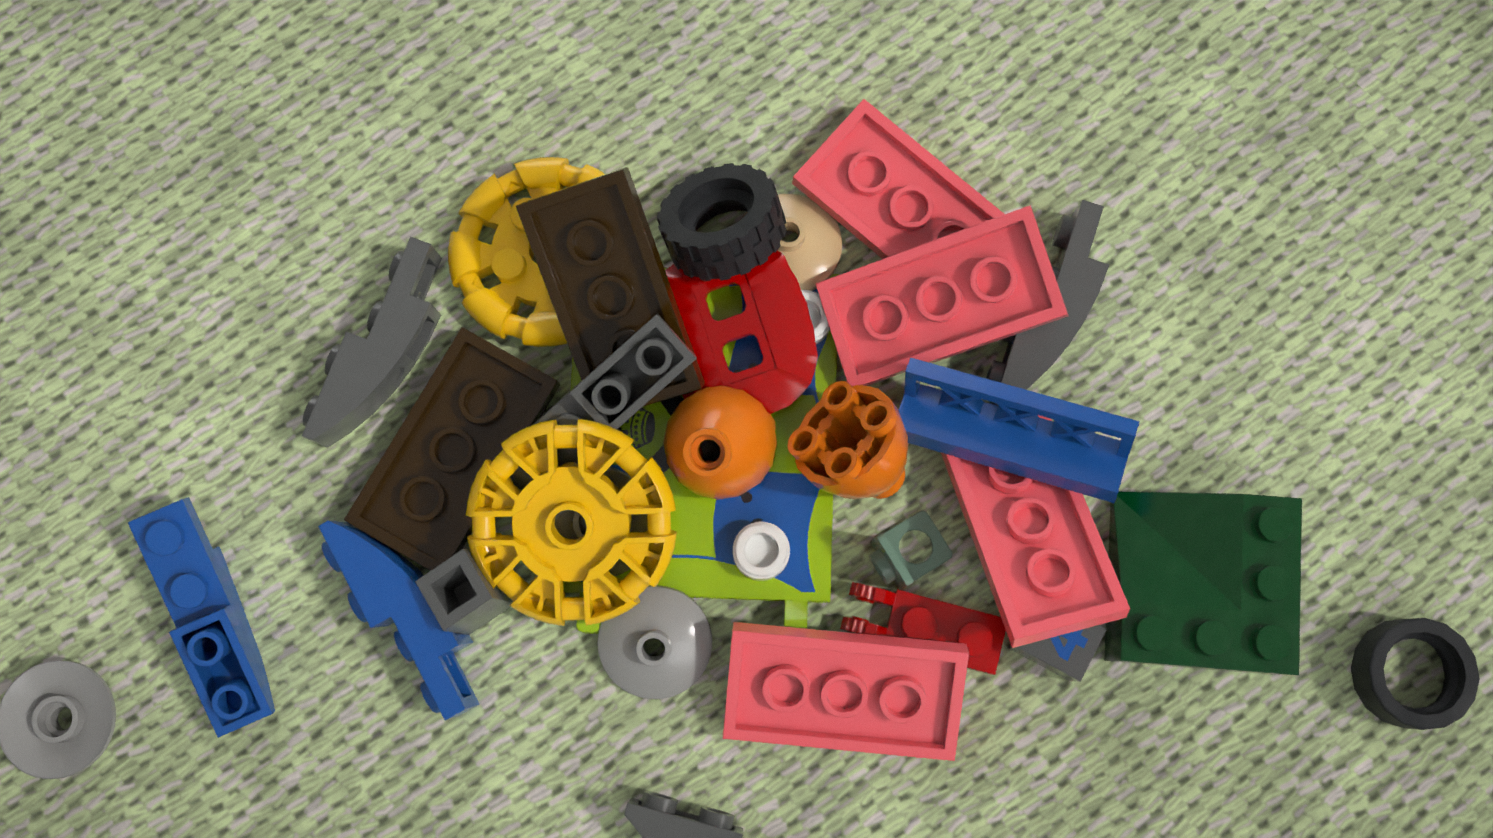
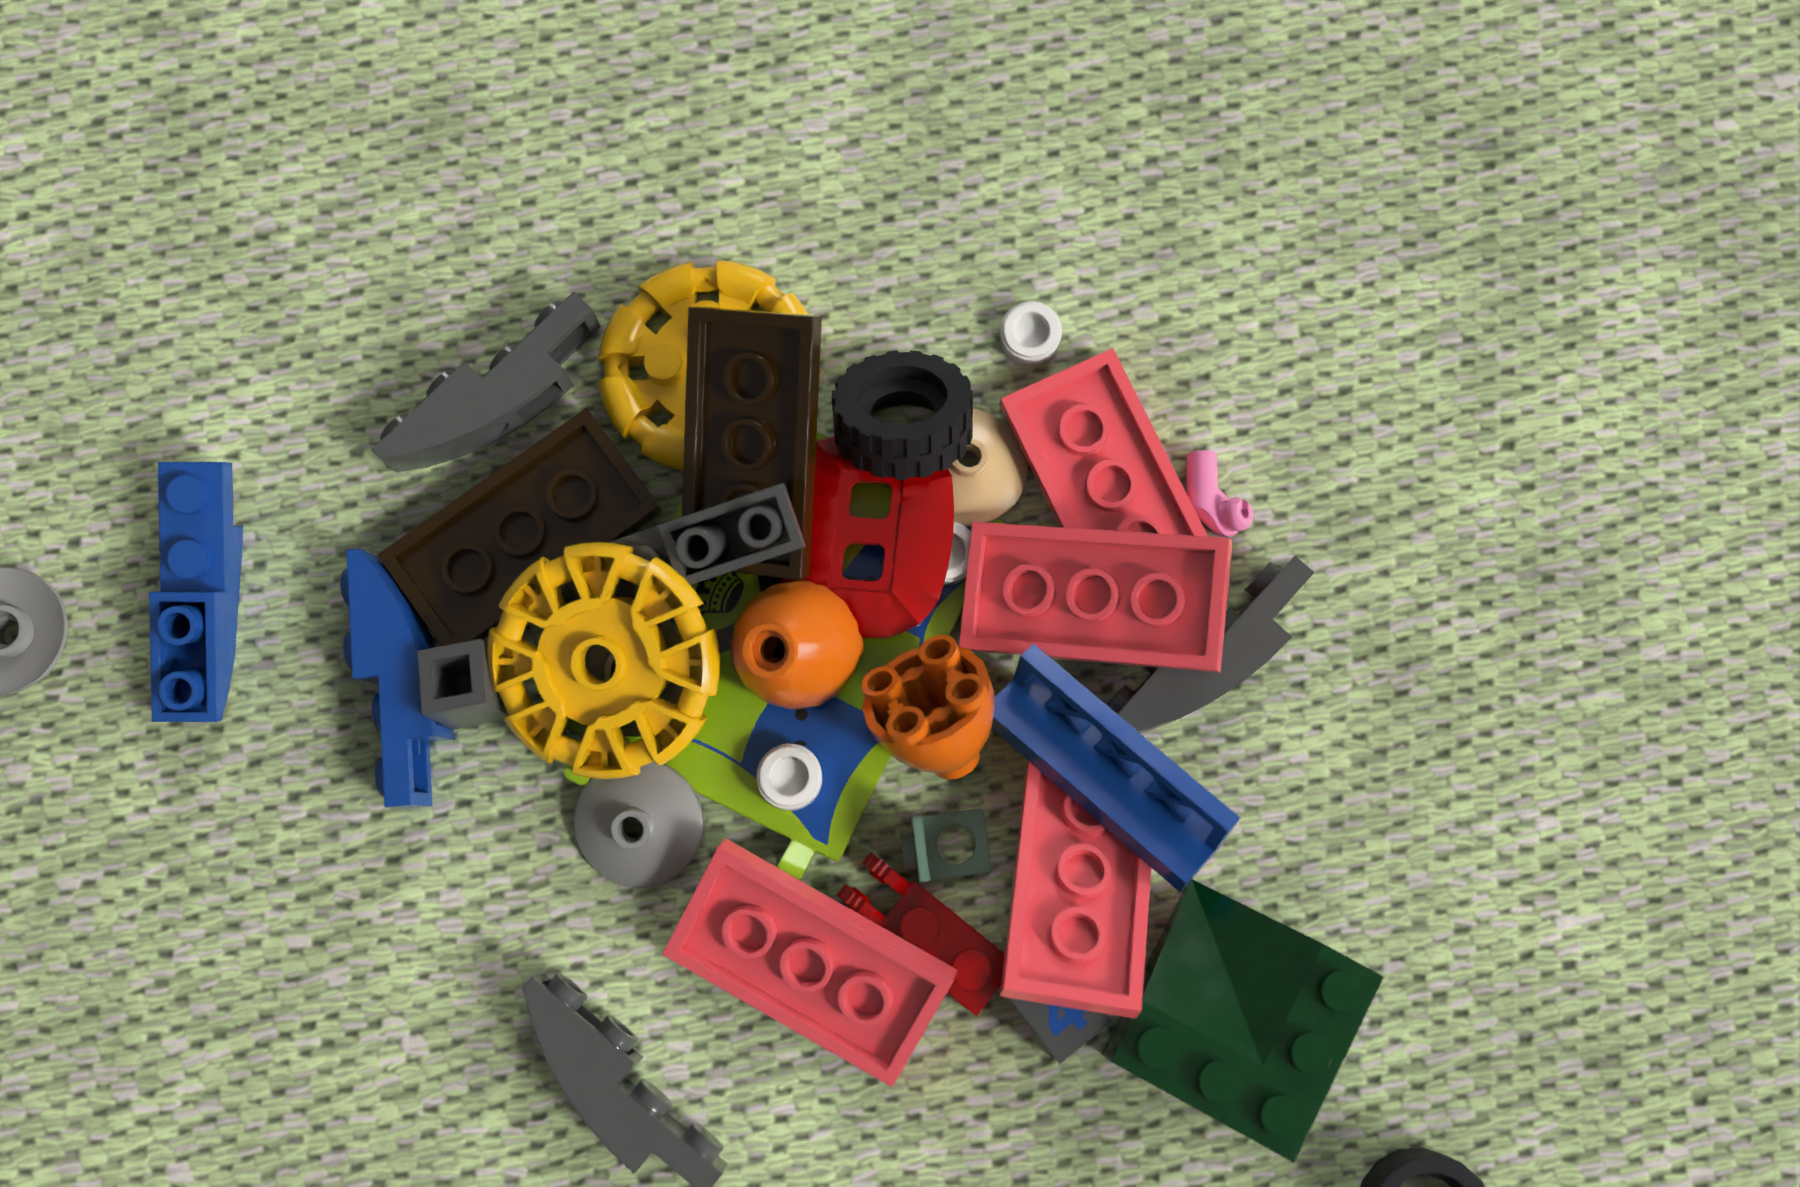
camera: 20 degrees right, 0 degrees up
(791, 116) = (1030, 333): none -> white tile
(1001, 192) = (1212, 506): none -> bright pink arm

